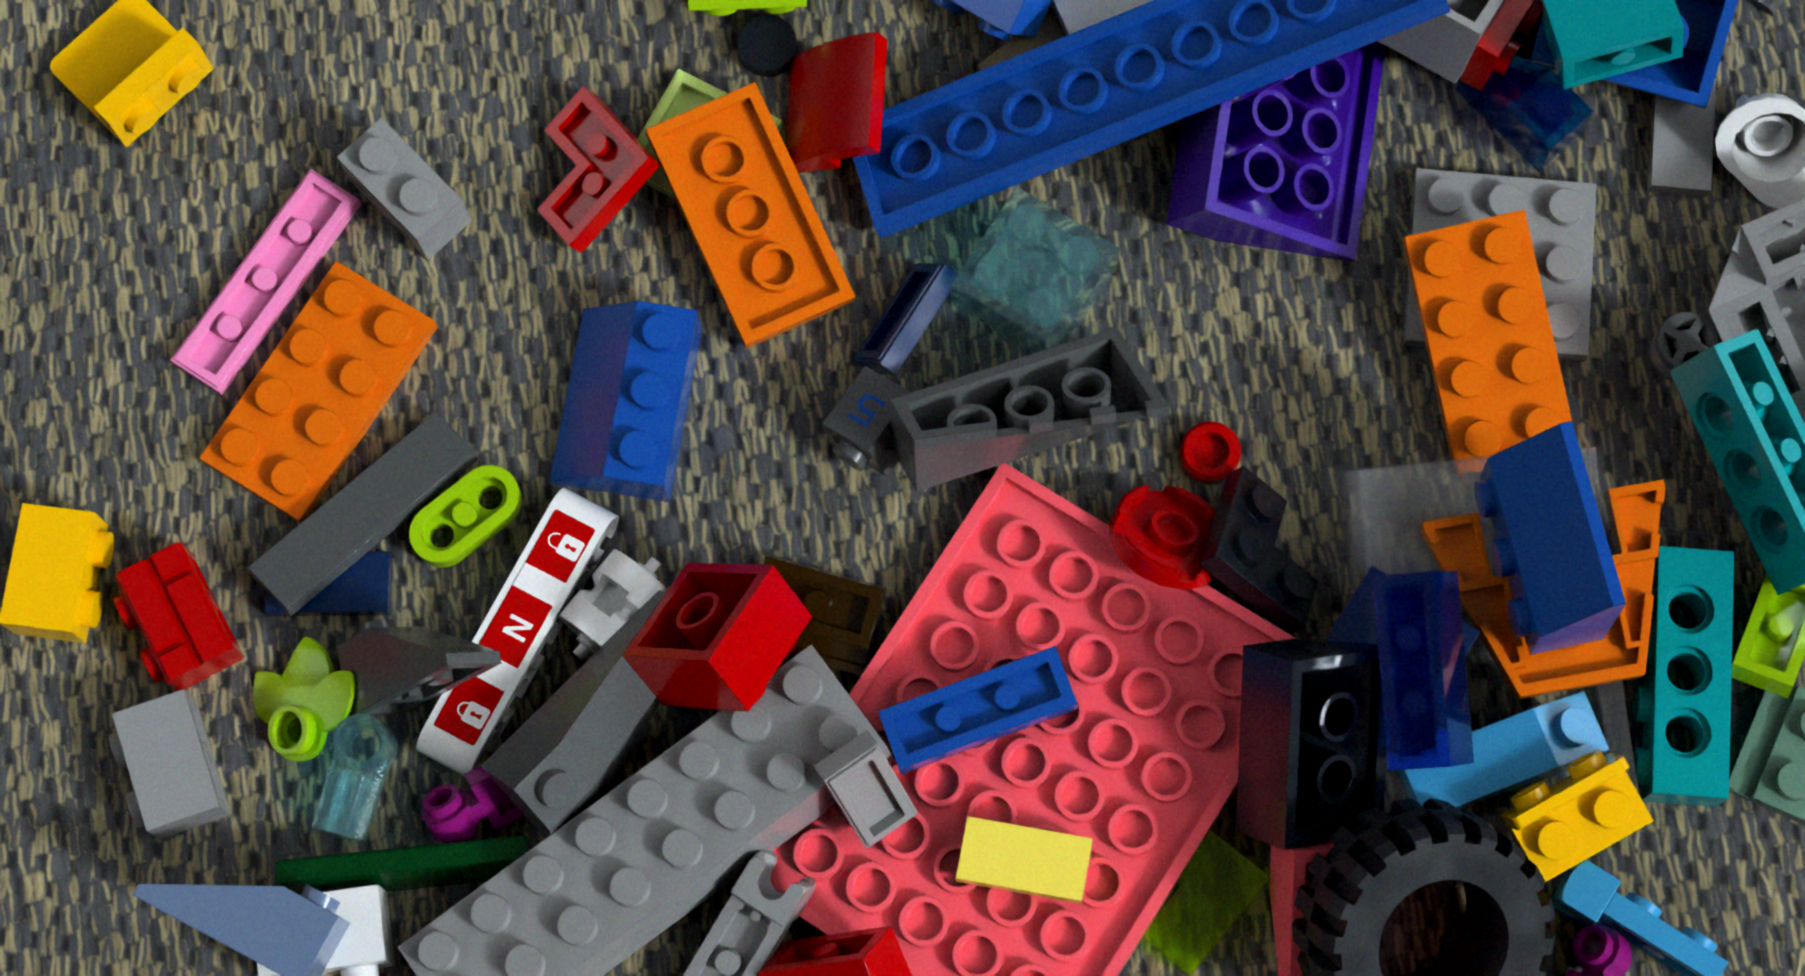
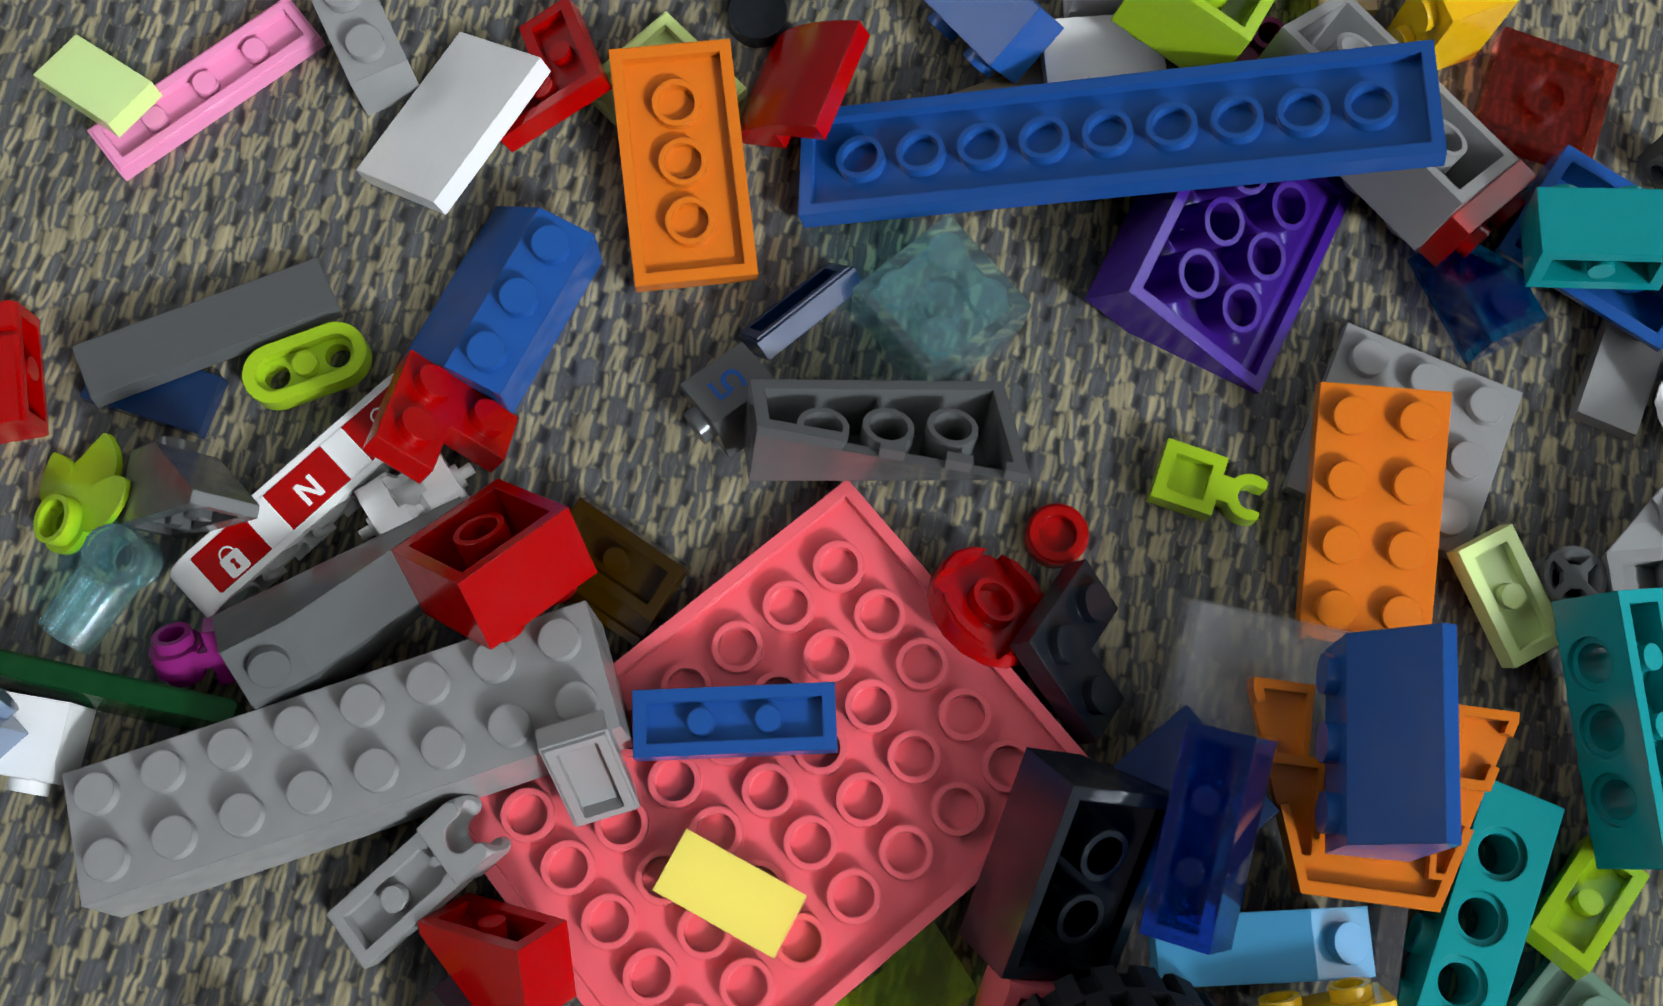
camera: 10 degrees right, 0 degrees up
(166, 313) = (98, 85): none -> yellowish green tile
(319, 392) = (215, 205): orange plate -> none
(518, 242) = (453, 121): none -> white tile
(610, 520) = (433, 409): none -> red plate
(1319, 363) = (1195, 482): none -> lime plate
(1631, 377) = (1506, 595): none -> yellowish green plate

